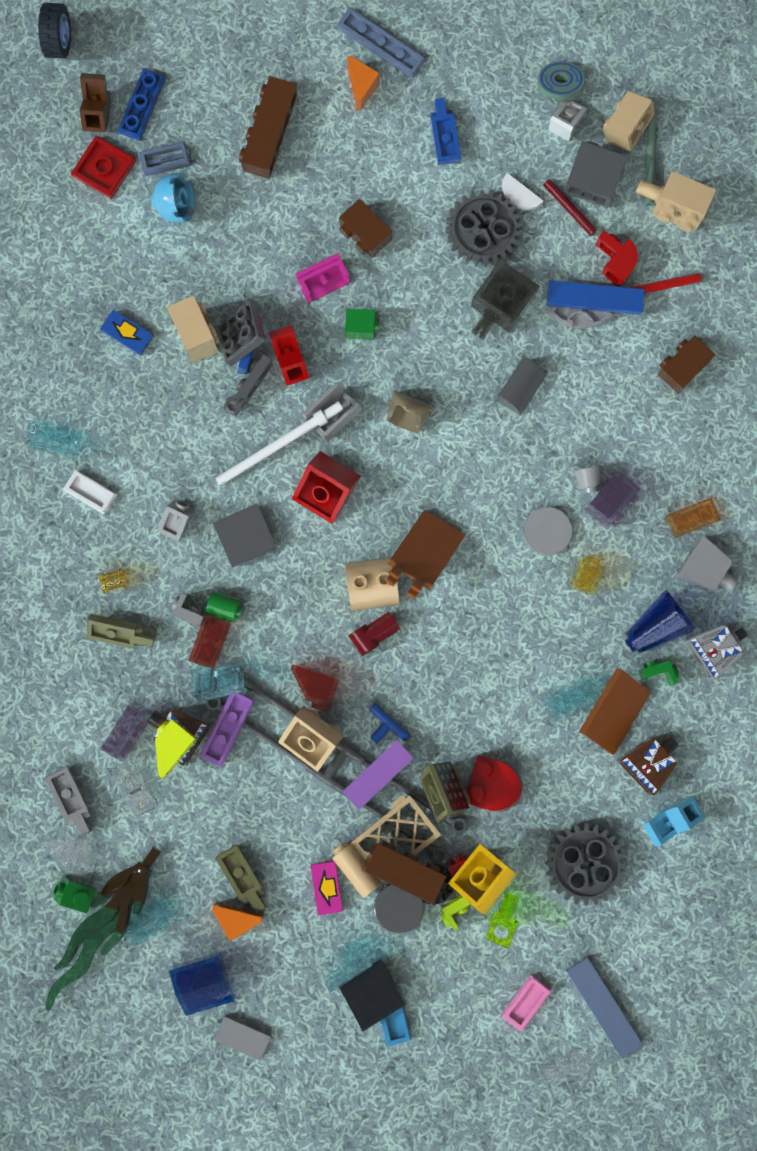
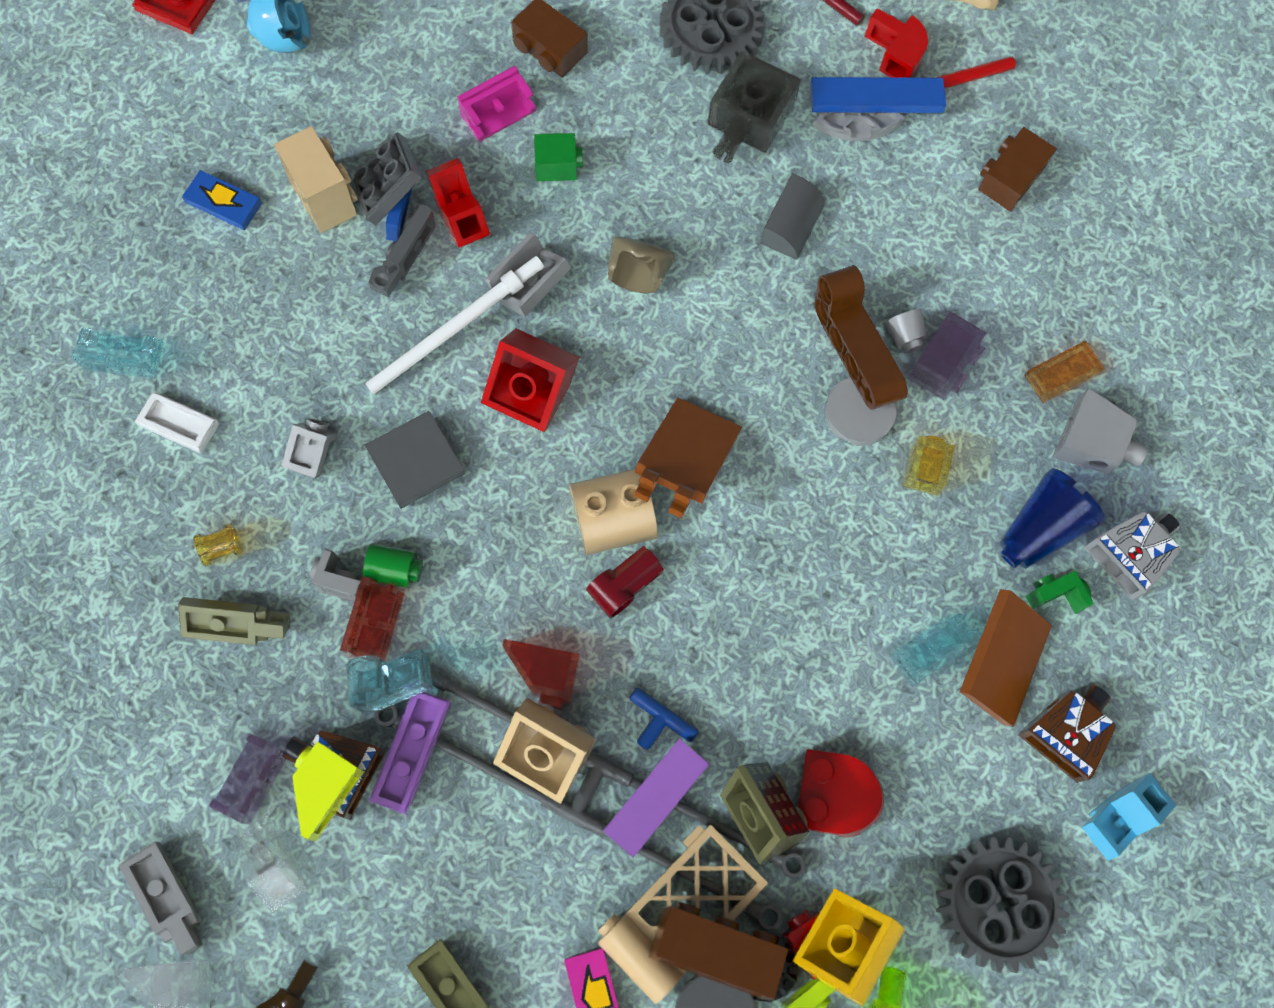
camera: 10 degrees left, 10 degrees down
(557, 503) = (856, 338): none -> reddish brown beam

